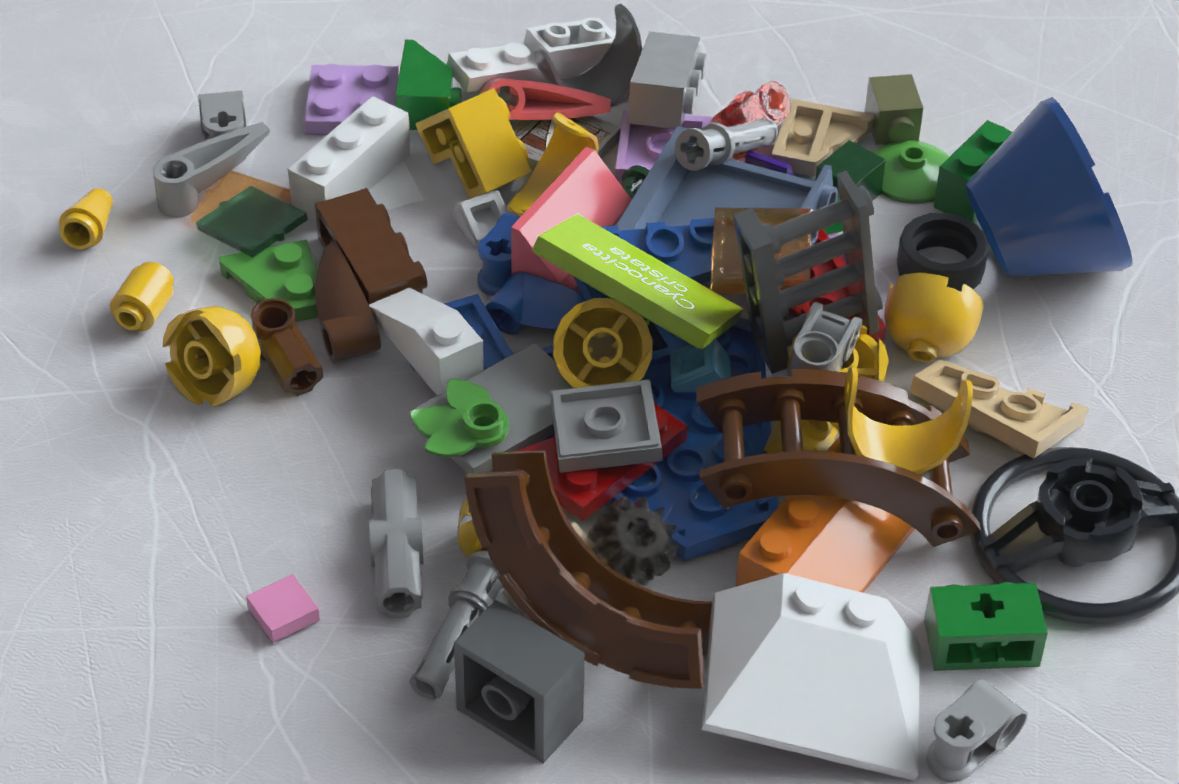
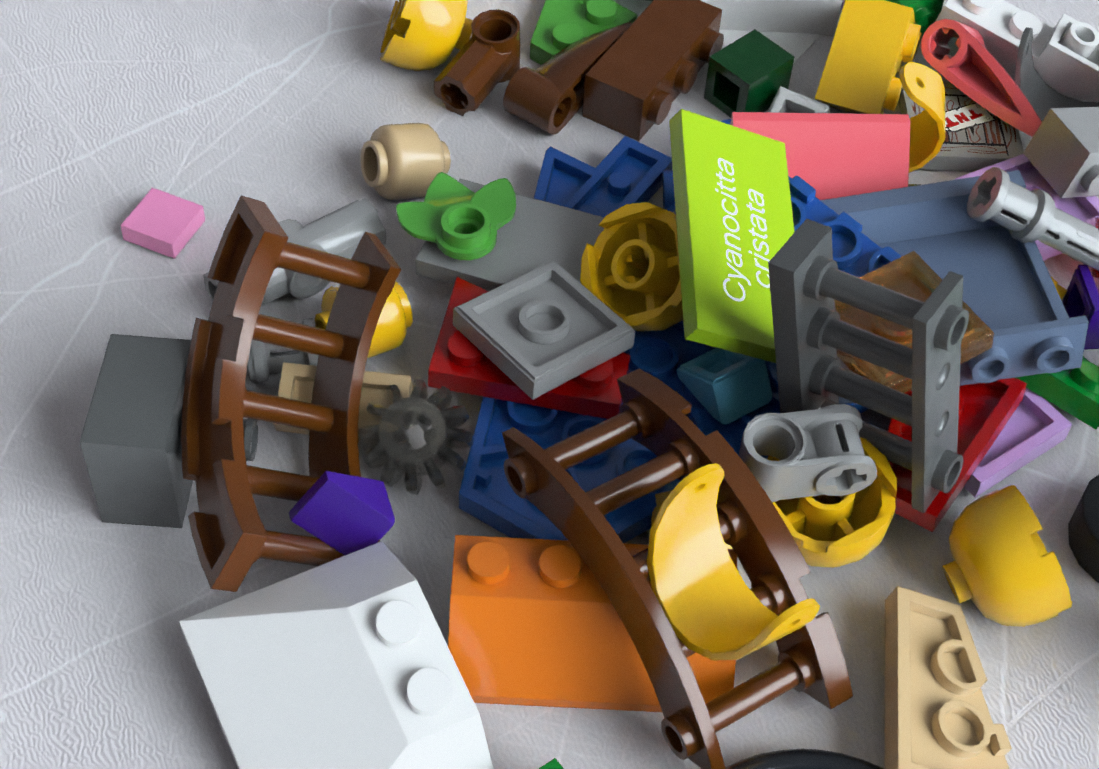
camera: 55 degrees right, 5 degrees up
(352, 436) = (403, 160): none -> tan head
(429, 215) = (747, 74): none -> dark green brick
(430, 337) = (560, 144): white slope -> none
(686, 597) = (345, 511): none -> dark purple slope

